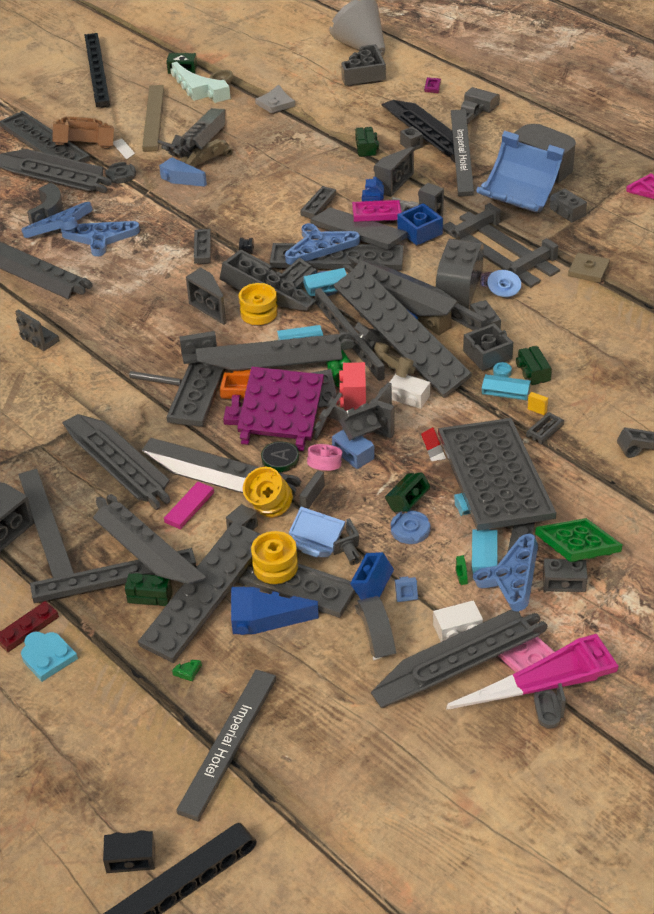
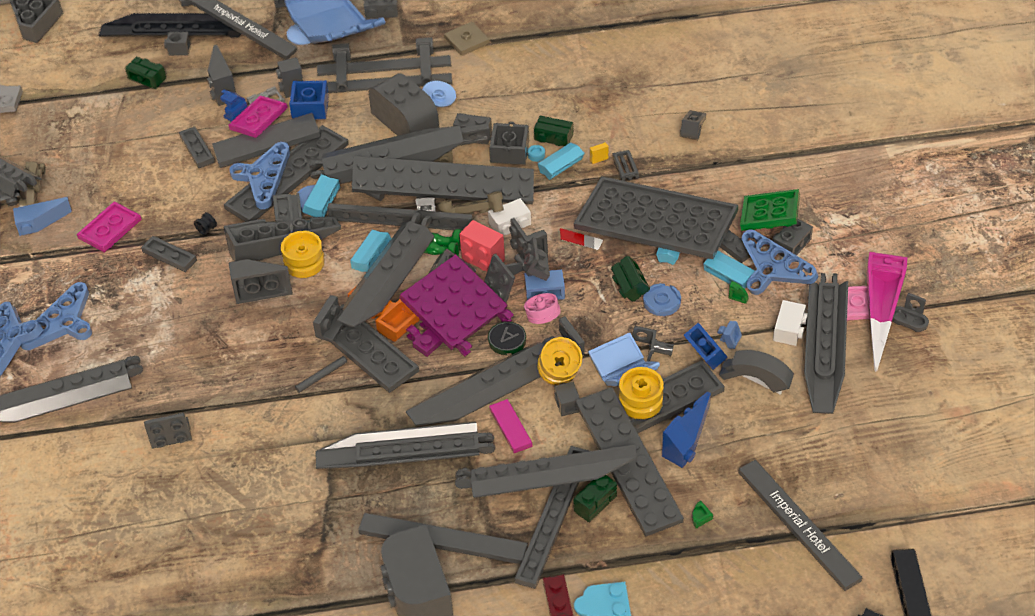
camera: 55 degrees left, 5 degrees up
(204, 208) = (109, 226): none -> dark pink tile

